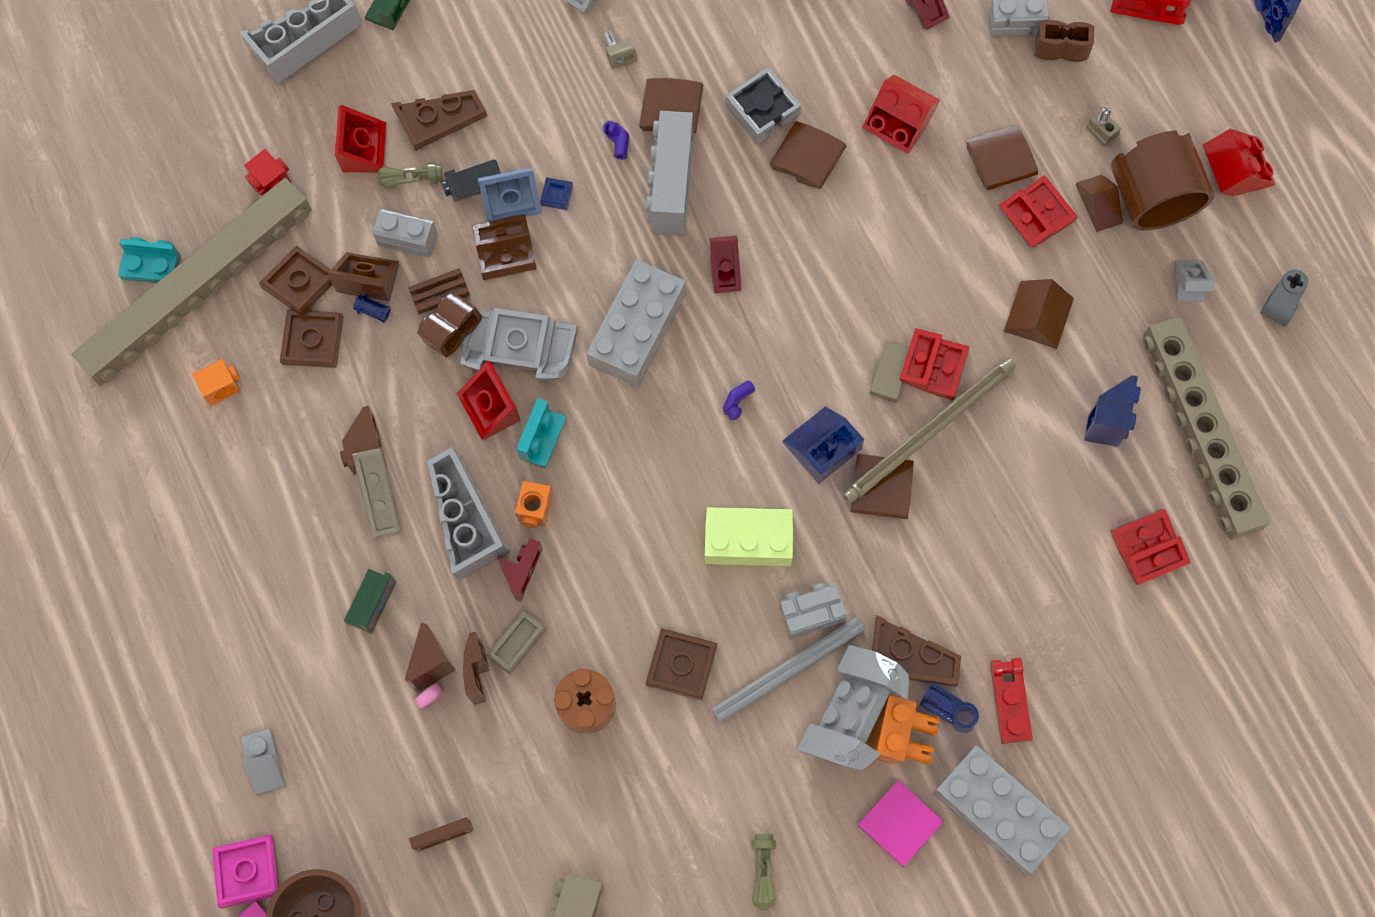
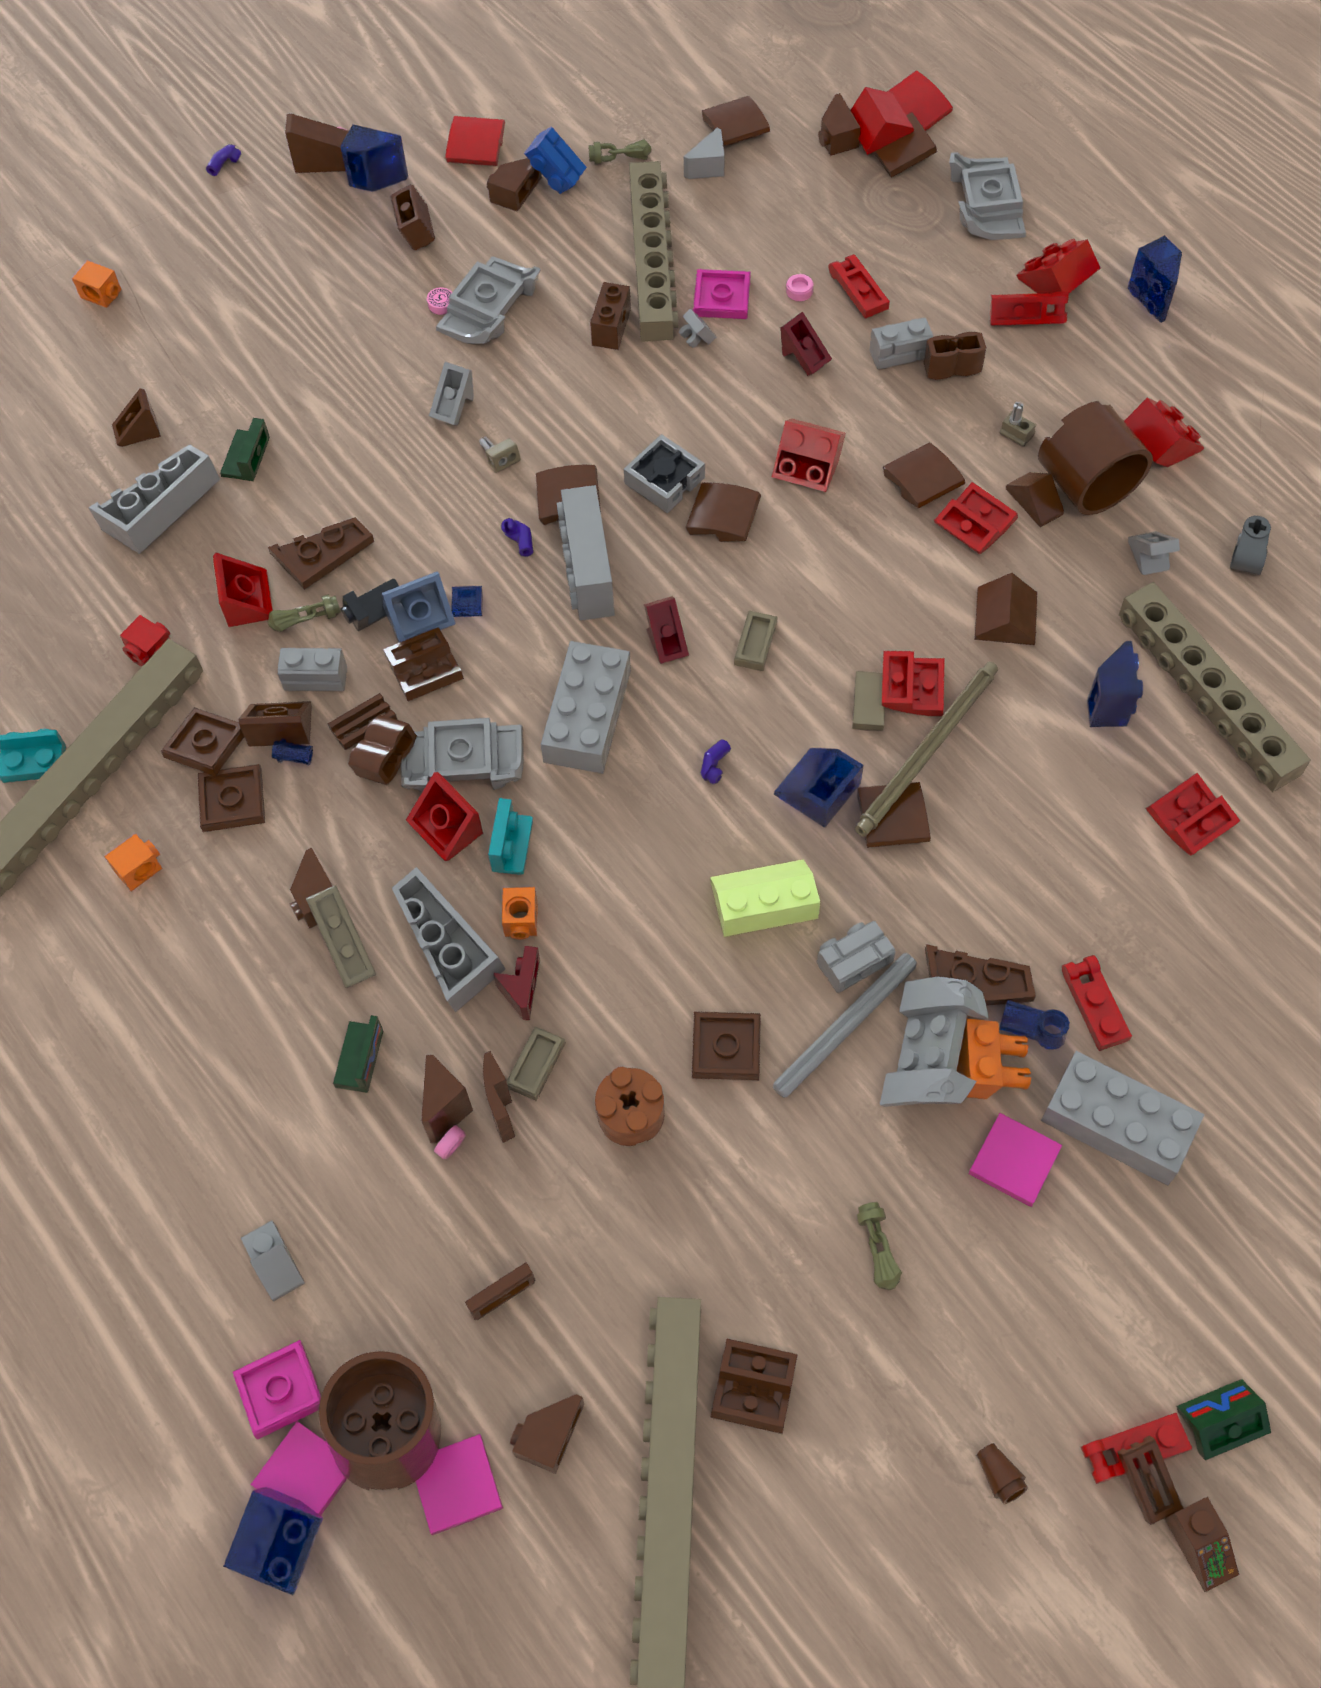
camera: 15 degrees left, 10 degrees down
(804, 289) = (755, 640): none -> dark tan tile

